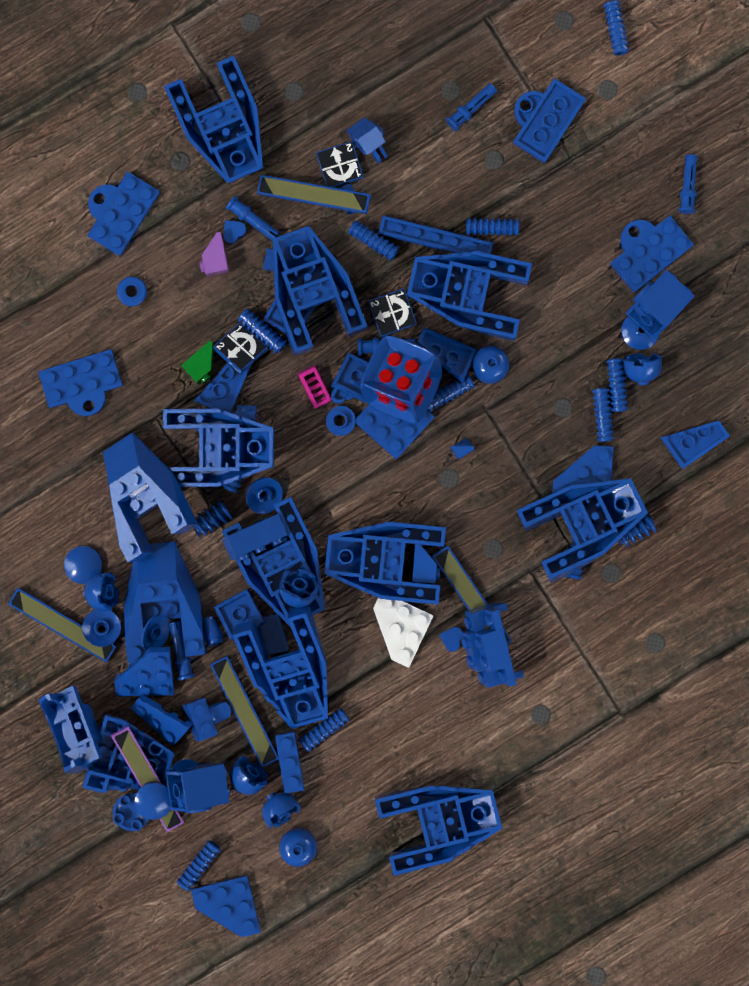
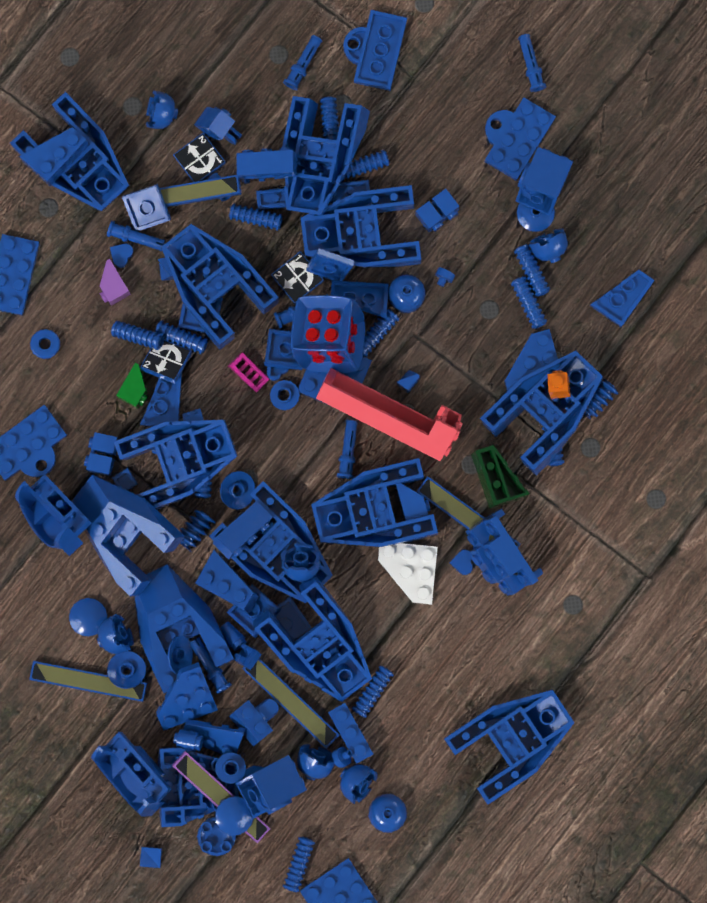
camera: 20 degrees left, 5 degrees down
(63, 809) = (150, 857): none -> blue slope
(81, 458) = (52, 515): none -> blue piece
(135, 716) = (188, 740): none -> blue brick
(144, 424) = (98, 463): none -> blue piece
(162, 448) = (125, 480): none -> blue tile
(163, 746) = (240, 768): none -> blue piece
(202, 114) = (55, 155): none -> blue wedge
(218, 655) = (247, 656): none -> blue tile
(221, 314) = (137, 335): none -> blue piece
(222, 580) = (226, 583): none -> blue wedge
(272, 195) = (146, 207): none -> tile
(273, 782) = (342, 757): none -> blue tile
(319, 105) = (161, 110): none -> blue cylinder
(378, 502) = (347, 459): none -> blue pin
(400, 194) = (266, 164): none -> blue wedge
(427, 313) = (329, 265): none -> blue tile
(433, 479) = (391, 417): none -> coral brick
(446, 210) = (319, 160): none -> blue wedge
(476, 175) = (329, 117): none -> blue piece
(512, 571) = (496, 477): none -> dark green wedge
(532, 361) = (444, 276): none -> blue tile
(557, 293) = (444, 204): none -> blue piece
(603, 506) = (558, 384): none -> orange brick

